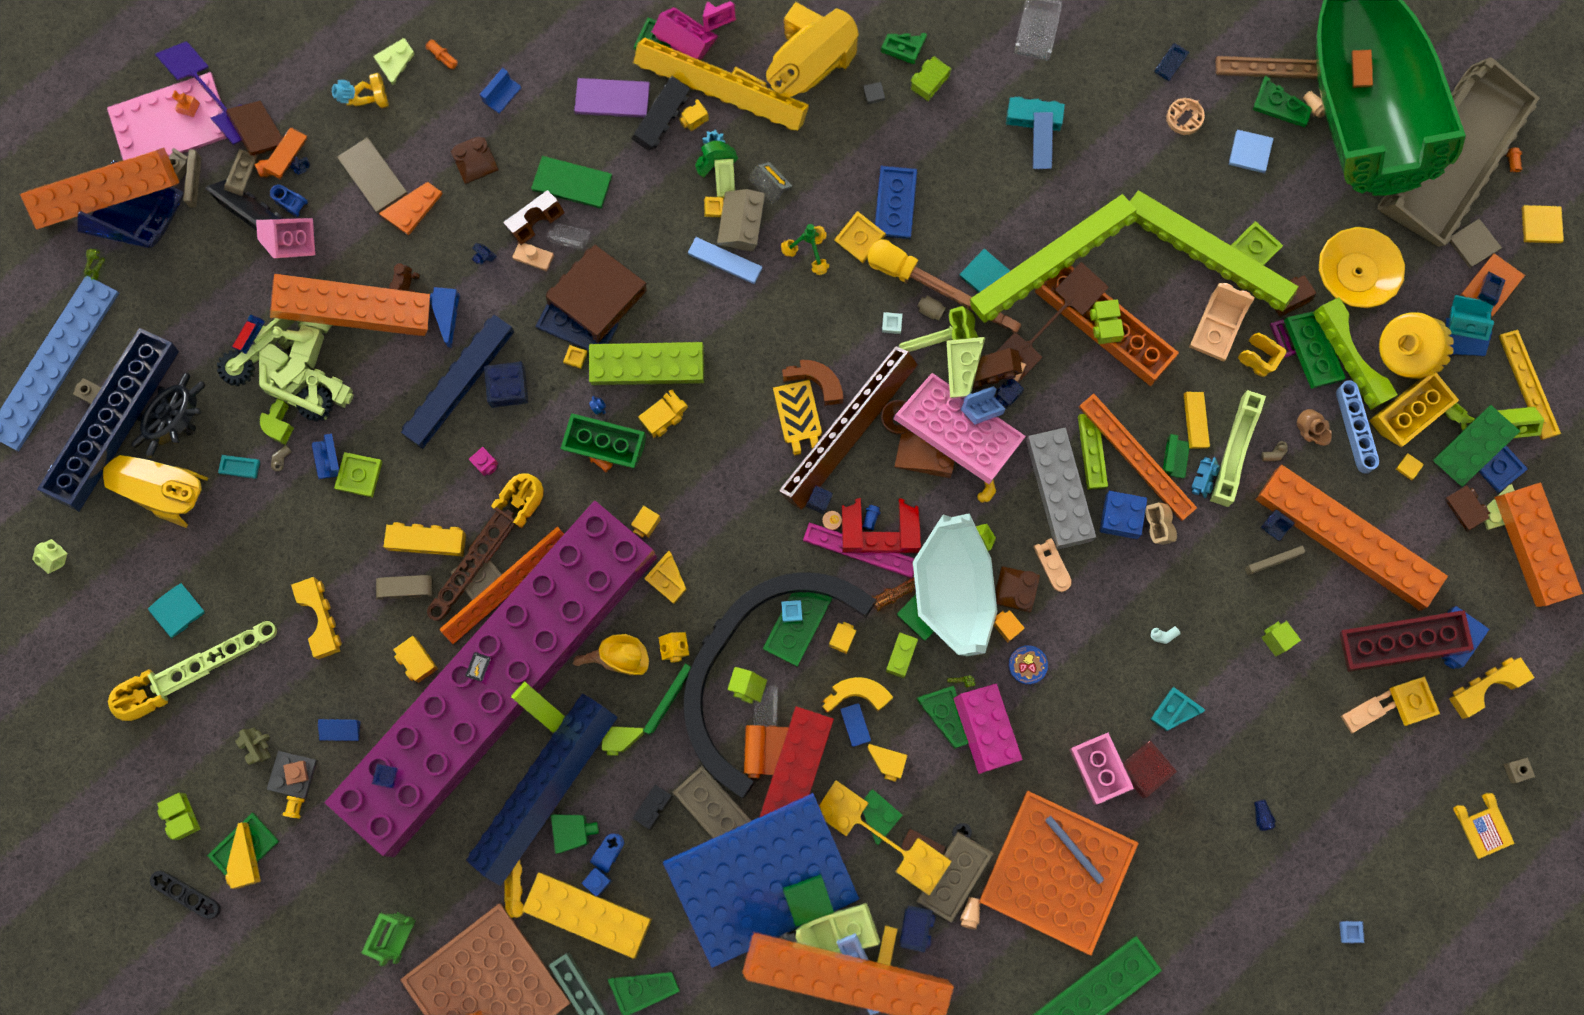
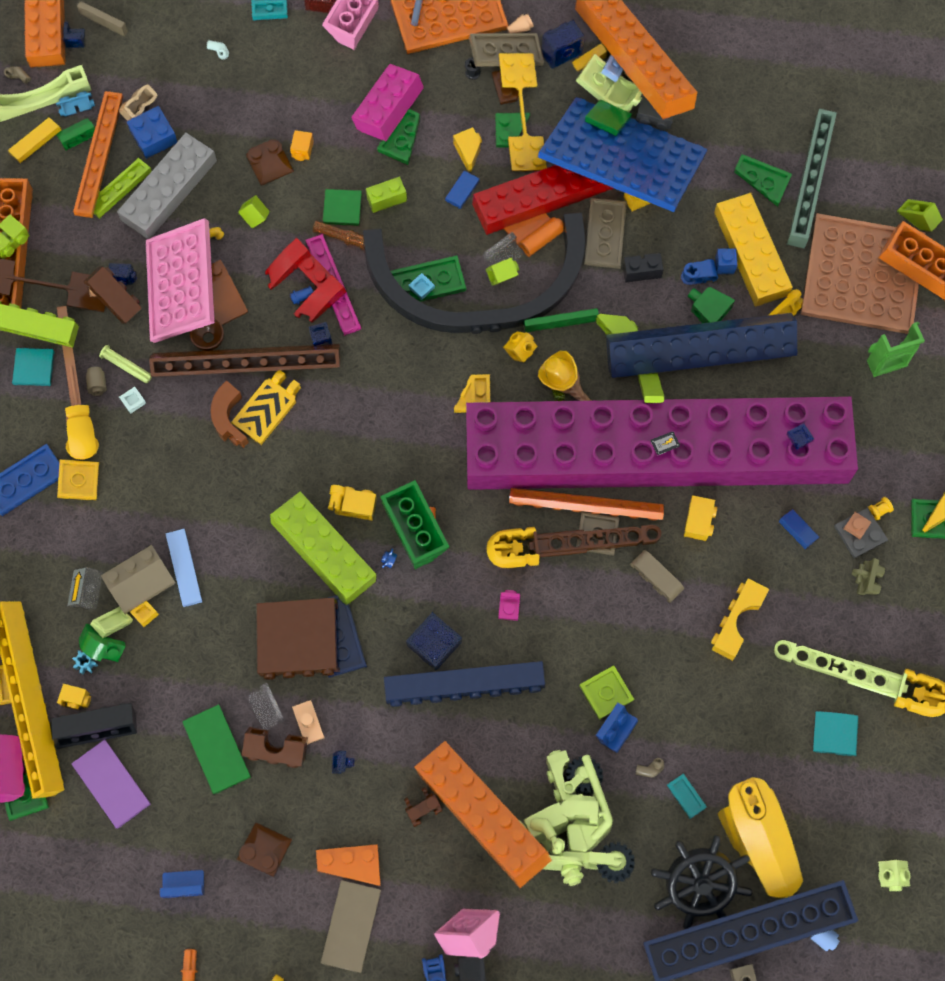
camera: 135 degrees left, 5 degrees down
(248, 334) = (581, 868): tile -> none
(273, 424) = (632, 795): lime brick -> none
(425, 540) = (608, 592): yellow brick -> none
(445, 306) = (416, 747): blue slope -> none
(575, 357) = (364, 613): yellow tile -> none
(645, 522) = (448, 444): yellow brick -> none
(812, 235) = (103, 512): plant -> none
(832, 520) = (329, 317): light nougat tile -> none
(842, 637) = (408, 242): yellow brick -> none
(860, 687) = (436, 206): yellow arch -> none
(956, 585) = (307, 189): light aqua panel -> none
(962, 323) = (91, 346): lime brick -> none
(963, 364) = (126, 314): yellowish green wing -> none
(968, 680) = (365, 141): clear neon green hand -> none
(982, 406) = (150, 278): medium blue bracket -> none
(1028, 665) = (318, 115): tile -> none
(1053, 566) = (230, 152): light nougat plate -> none

